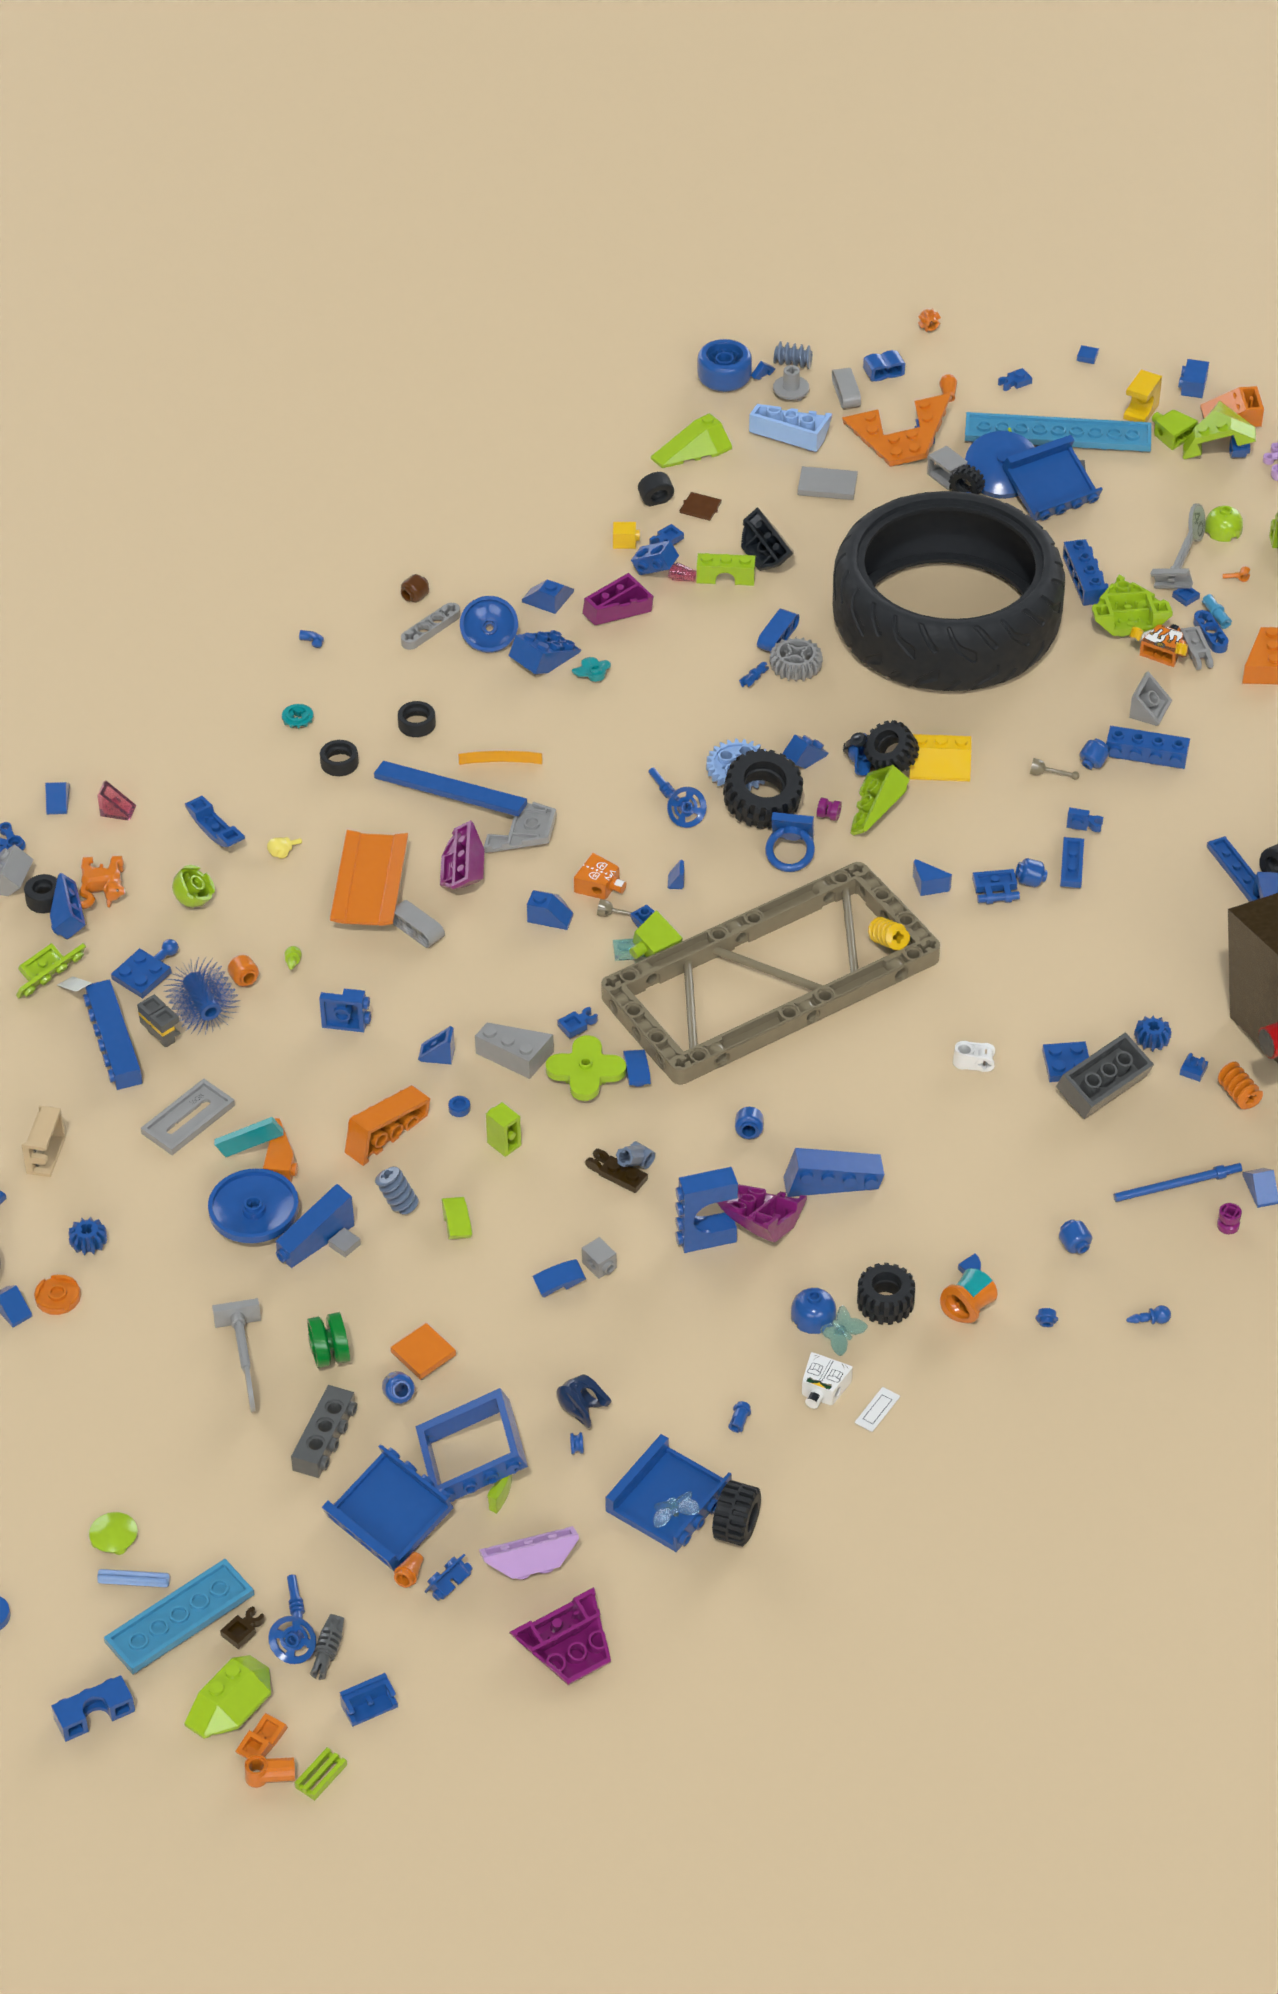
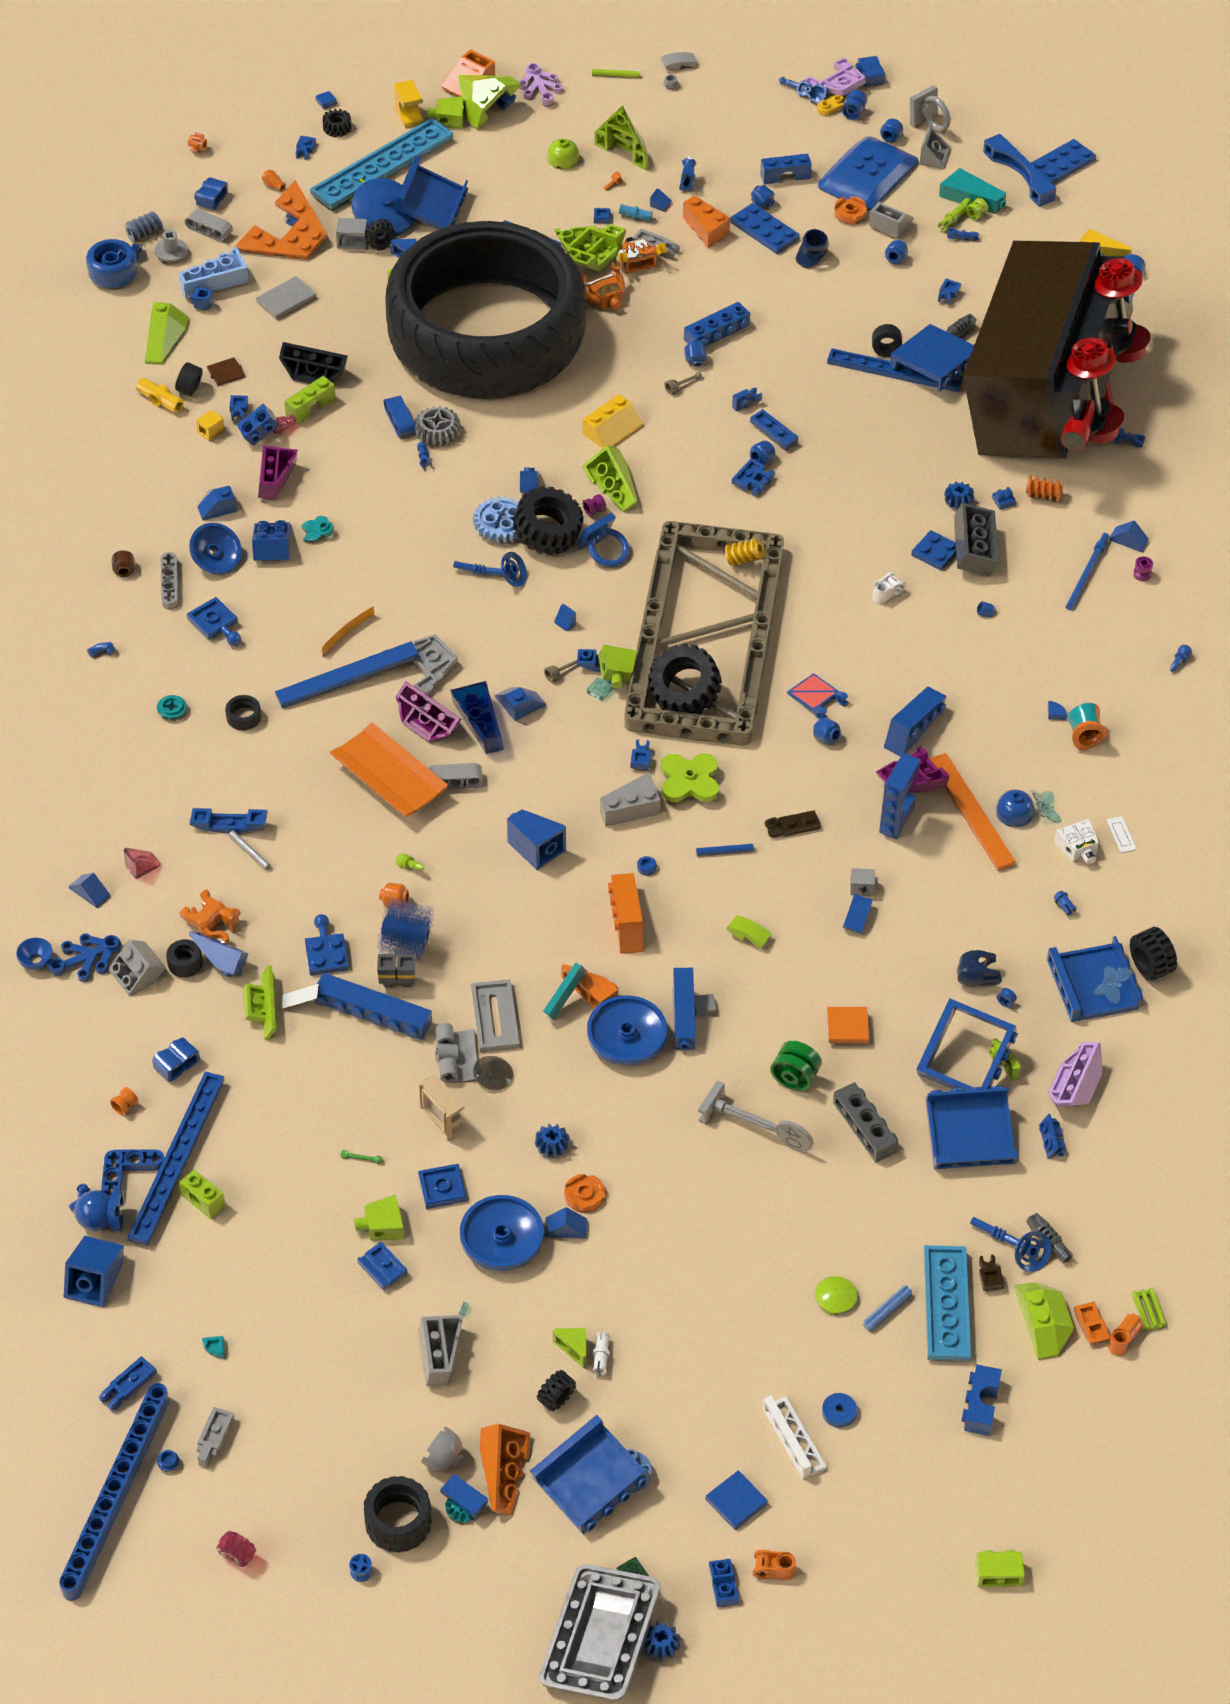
camera: 50 degrees left, 5 degrees up
(118, 1117) = (455, 1054): none -> light grey panel
(125, 1161) = (490, 1078): none -> clear smoke dish
(192, 886) = (283, 871): lime cylinder -> none
(202, 851) = (248, 849): none -> light grey bar
(281, 846) = (292, 799): light yellow piece -> none
(345, 1010) = (502, 865): blue plate -> none
(368, 1699) = (1115, 1244): blue hinge -> none
(397, 1013) = (536, 837): none -> blue slope
(397, 1190) = (698, 944): sand blue piece -> none
(398, 1387) = (870, 1057): blue head -> none
(408, 1571) = (1029, 1156): orange cone -> none
(416, 708) = (255, 658): black tyre -> none
(418, 675) = (215, 618): none -> blue plate
(439, 1048) = (586, 839): blue slope -> none
(497, 894) = (478, 713): none -> clear blue wedge
(503, 1129) = (703, 853): lime brick -> none
(541, 1148) = (724, 849): none -> blue bar
(568, 1638) = (1164, 1106): magenta wedge -> none
(598, 878) = (523, 656): orange torso -> none
(621, 487) = (160, 395): none -> yellow piece
(635, 1155) = (796, 803): sand blue piece -> none
(637, 1067) = (722, 753): blue slope -> none
(692, 1003) = (675, 661): none -> black tyre
(757, 438) = (202, 298): none -> blue plate
(775, 1284) = (974, 815): none -> orange tile
(789, 1089) = (815, 693): none -> flag
(855, 751) = (564, 453): blue cap -> none
(885, 736) = (580, 424): black tyre -> none
(886, 1307) = (1041, 752): black tyre -> none
(930, 879) = (711, 502): blue slope -> none
(1037, 1141) = (985, 609): none -> blue piece
(1046, 1317) = (1133, 704): blue plate -> none
(1067, 377) = (336, 122): none -> black tyre
(1075, 1236) = (1086, 645): blue head -> none
(1092, 653) = (606, 290): none -> orange torso
(1149, 701) = (677, 297): light grey slope -> none
(1177, 576) = (585, 208): light grey piece -> none
(1193, 378) = (415, 68): blue brick -> none
(1222, 641) = (635, 223): blue beam -> none
(1254, 615) = (659, 200): none -> blue slope

